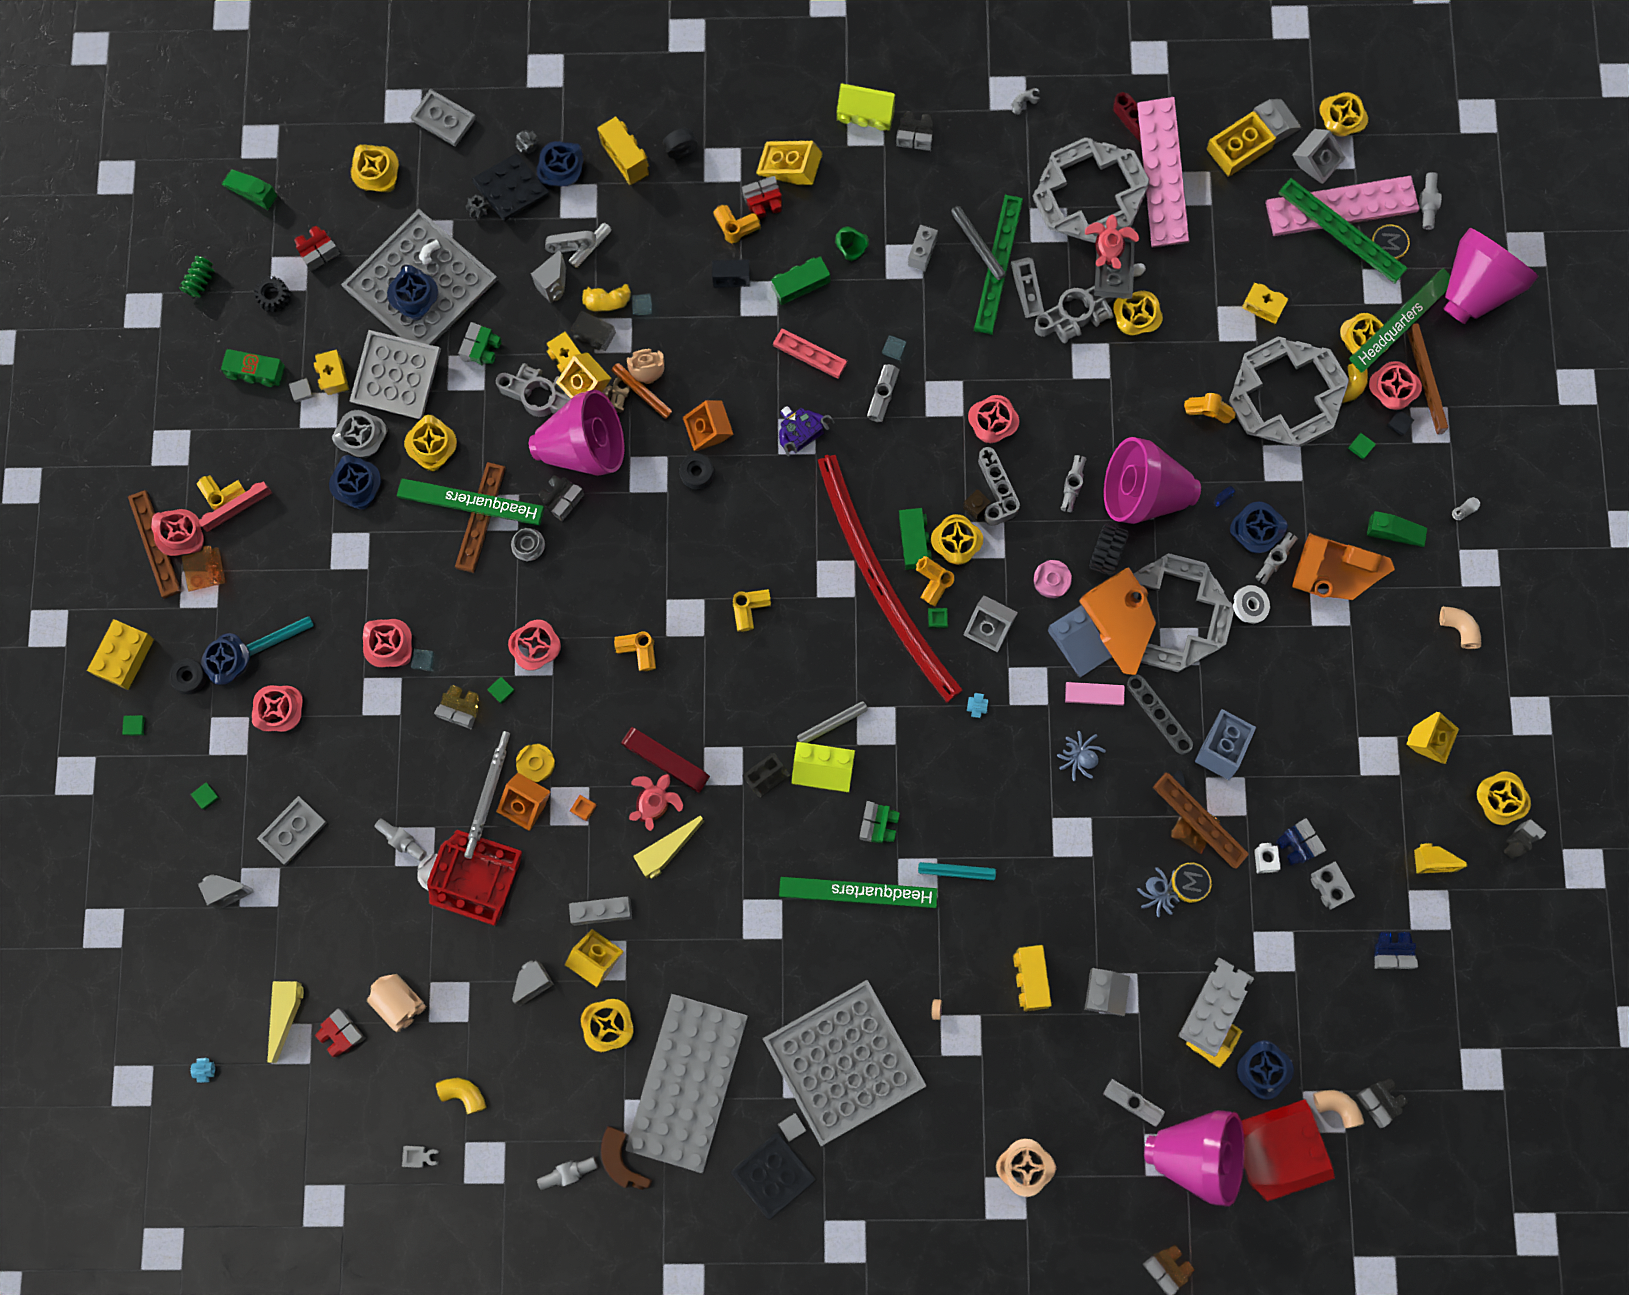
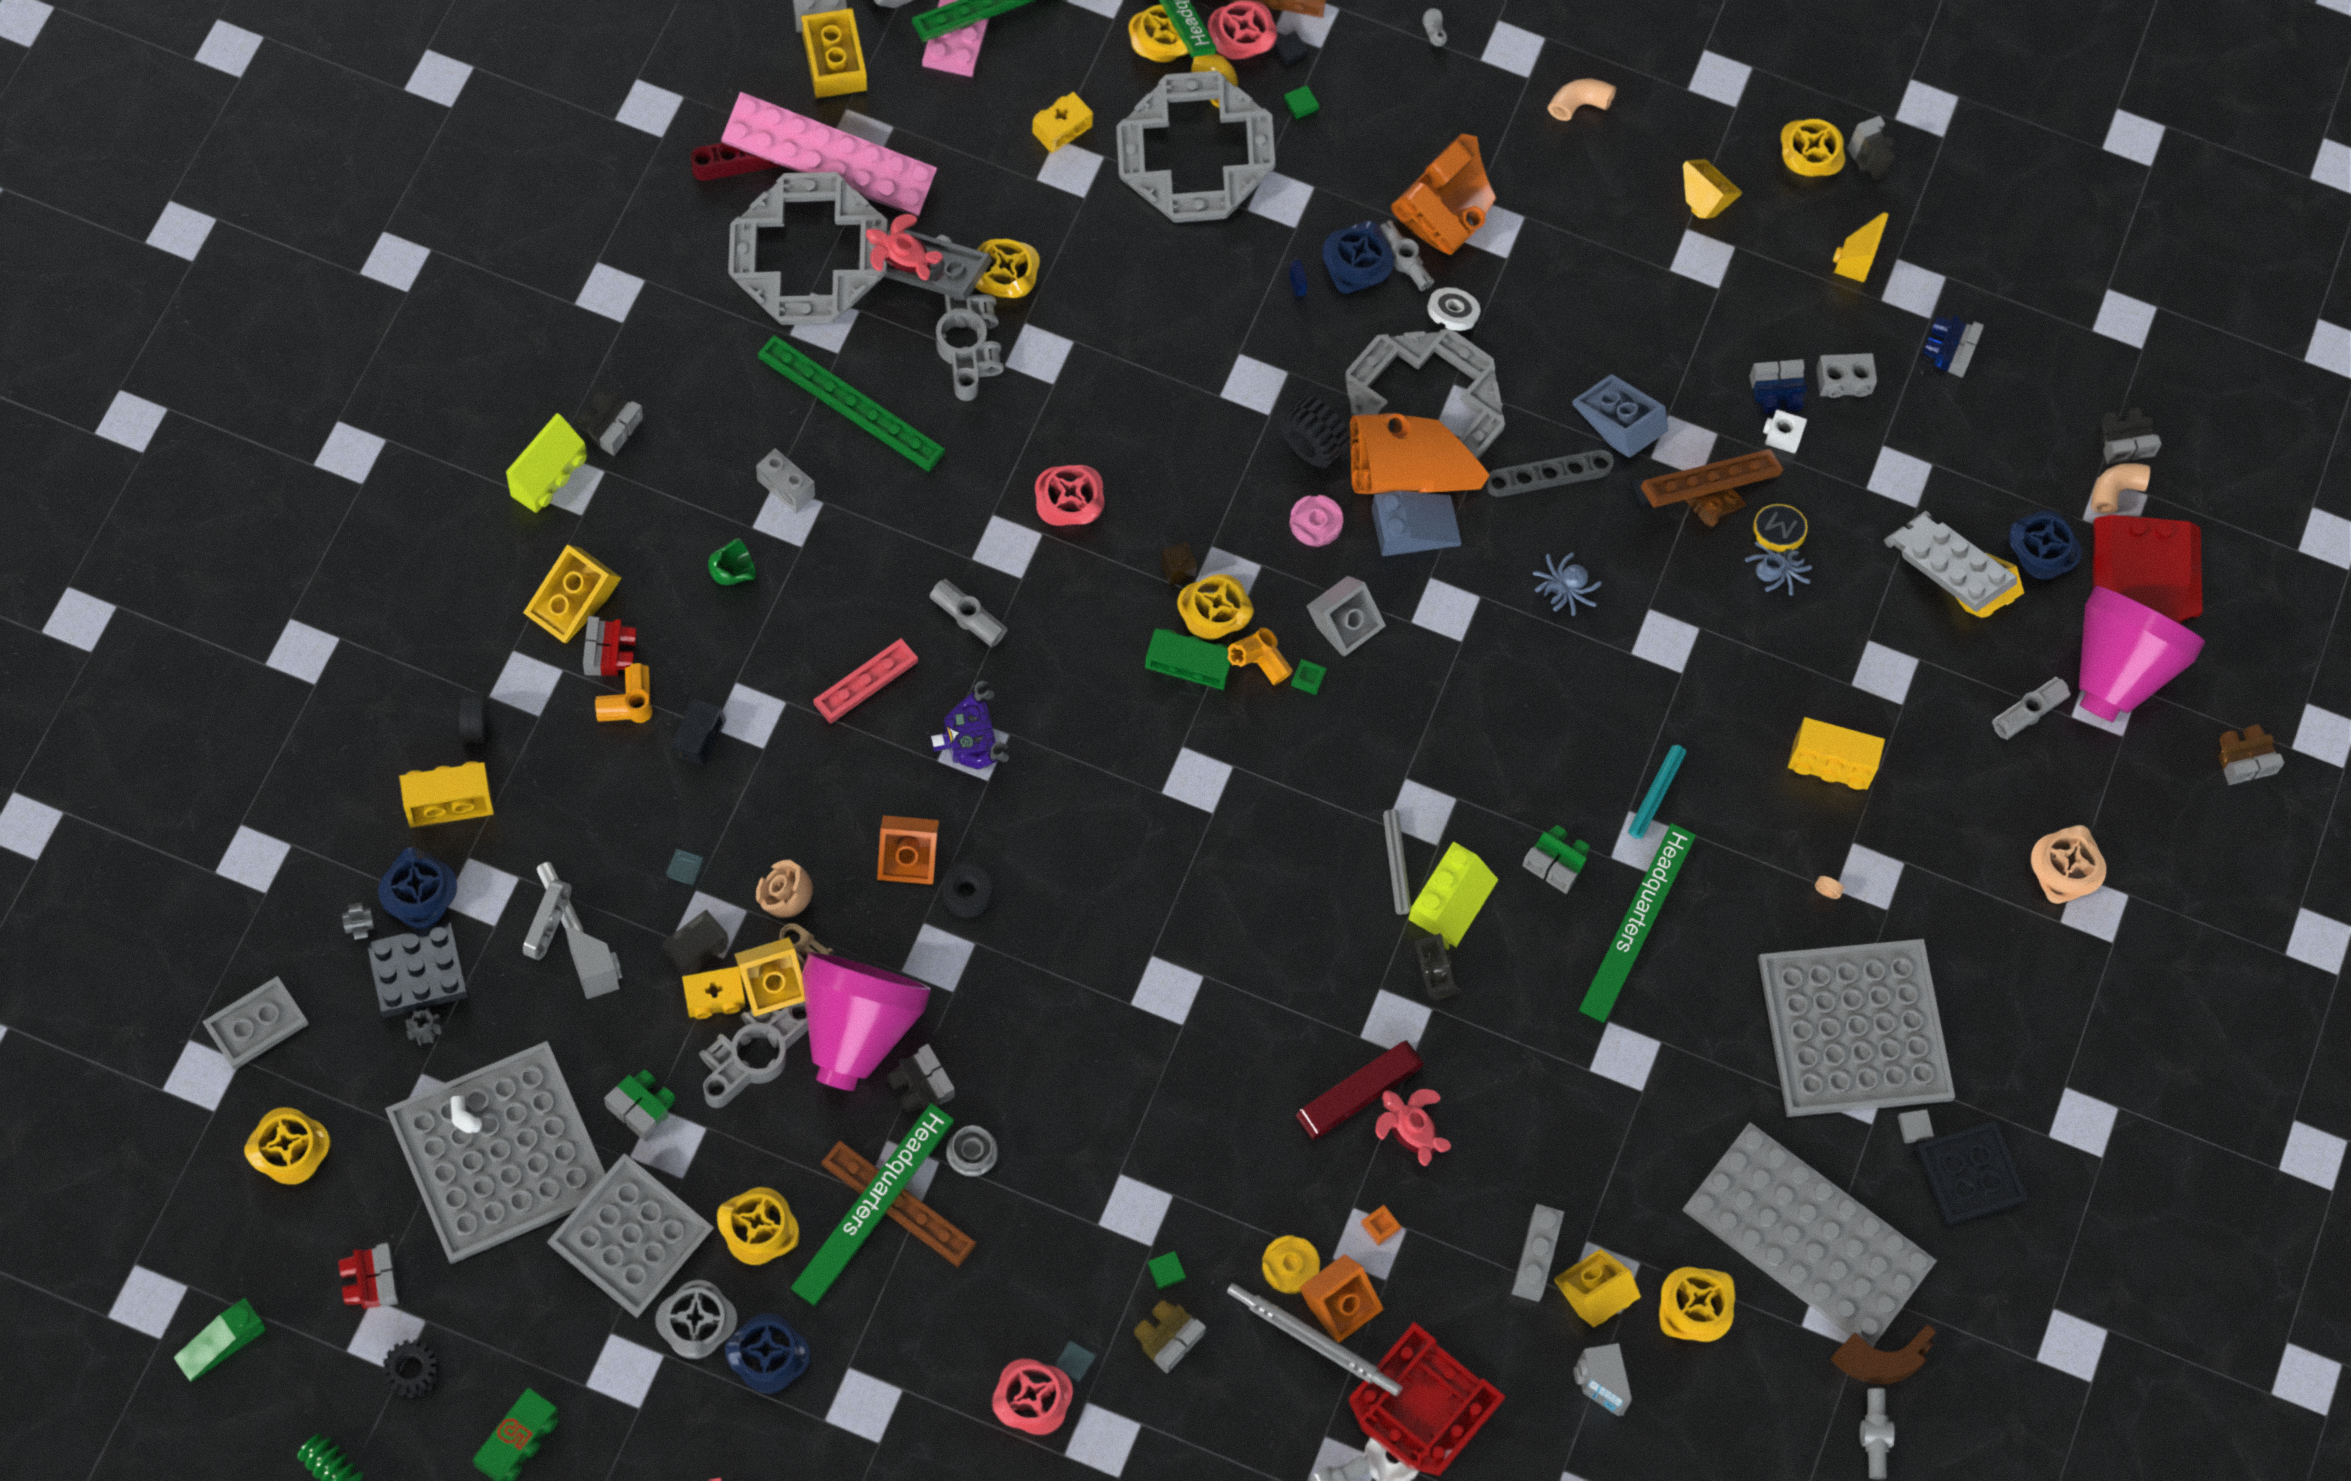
camera: 80 degrees left, 10 degrees down
(301, 390) = (583, 1383): light grey tile -> none
(327, 363) = (568, 1316): yellow brick -> none
(424, 292) = (497, 1149): dark blue piece -> none
(537, 627) = (1107, 1179): coral piece -> none
(600, 300) = (656, 913): yellow animal -> none
(641, 390) = (817, 913): orange axle -> none
(645, 653) = (1177, 1068): light orange piece -> none
(659, 854) = (1488, 1144): light yellow slope -> none
(743, 613) = (1198, 909): yellow piece -> none
(800, 280) = (753, 649): green brick -> none
(888, 601) = (1191, 729): red piece -> none
(894, 347) = (907, 575): clear light blue tile -> none
(977, 705) = (1450, 675): medium azure gear -> none
(978, 243) = (811, 412): dark grey axle -> none
(996, 483) = (1160, 532): light grey beam -> none
(1018, 101) = (633, 282): light grey piece -> none
(1027, 286) = (901, 379): light grey slope -> none
(1073, 475) = (1192, 432): light grey pin -> none
(1094, 693) = (1490, 535): bright pink tile -> none
(1107, 992) = (1880, 683): light grey slope -> none
(1146, 483) = (1246, 354): dark pink cone -> none
(1211, 406) = (1175, 238): light orange piece -> none
(1396, 529) = (1426, 113): green slope -> none

